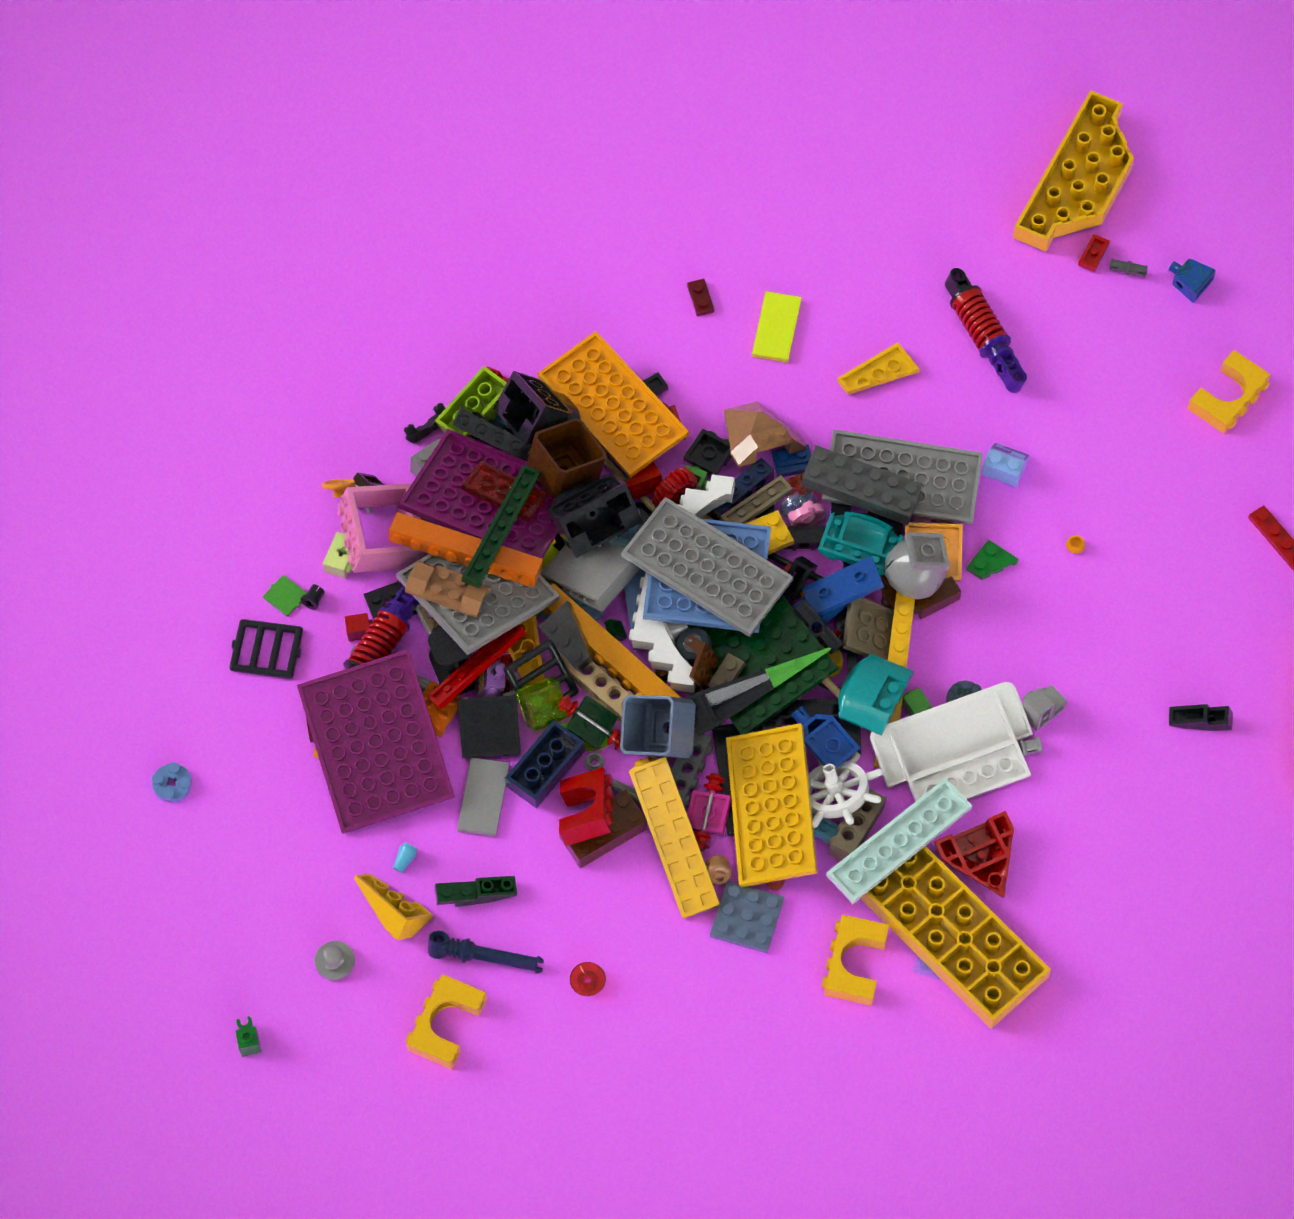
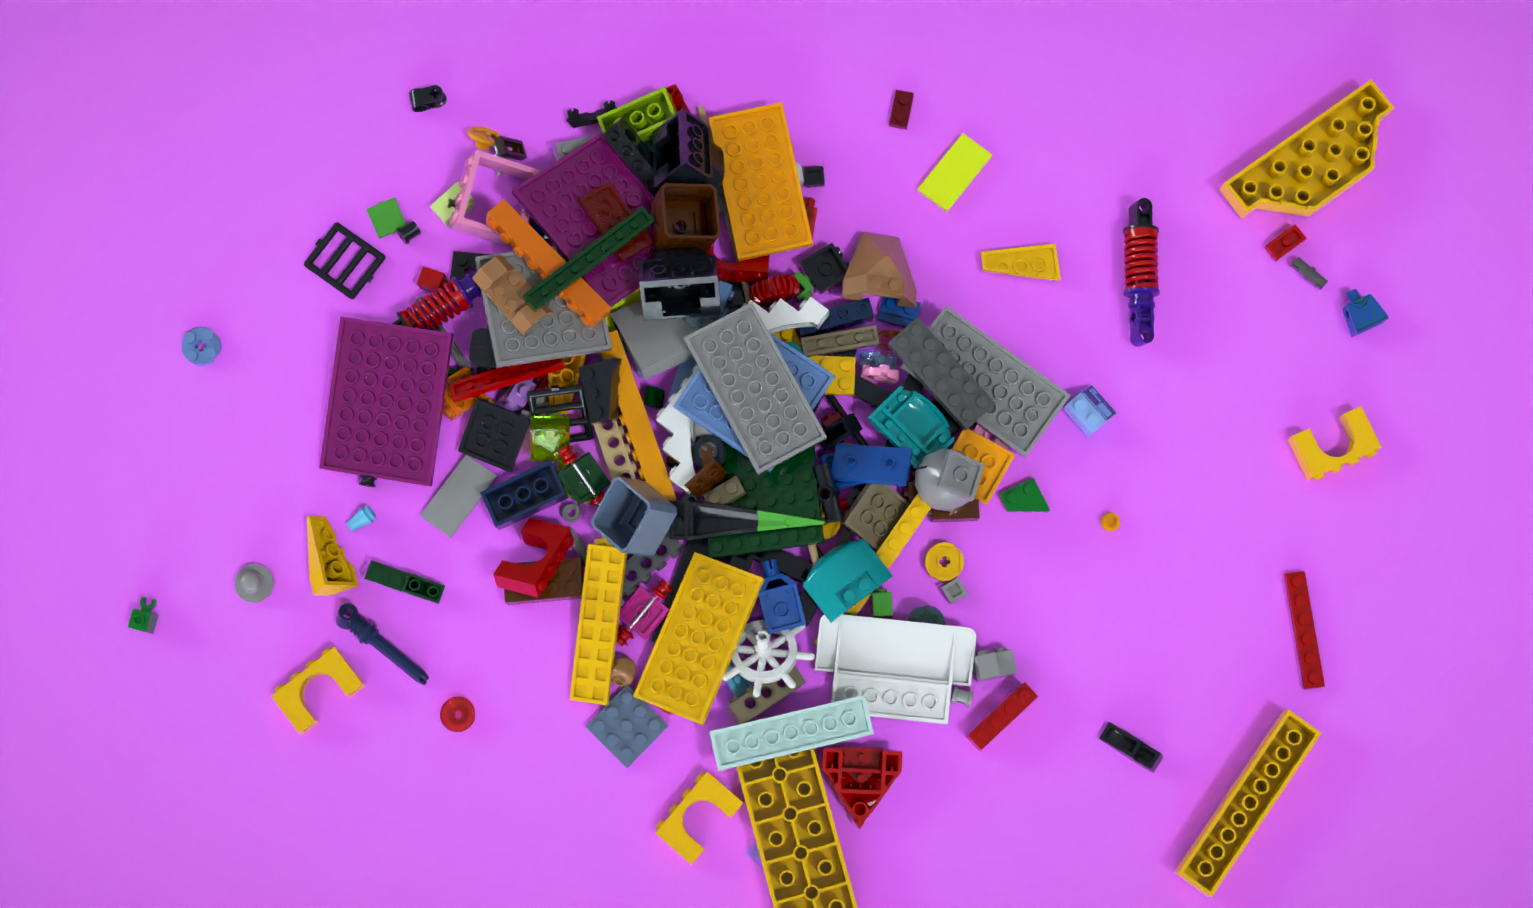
camera: 25 degrees right, 15 degrees up
(267, 478) = (425, 98): none -> black piece
(392, 822) = (367, 481): none -> black bush
(946, 654) = (935, 555): none -> yellow plate
(973, 663) = (954, 590): none -> light grey plate
(1074, 745) = (1002, 716): none -> red brick

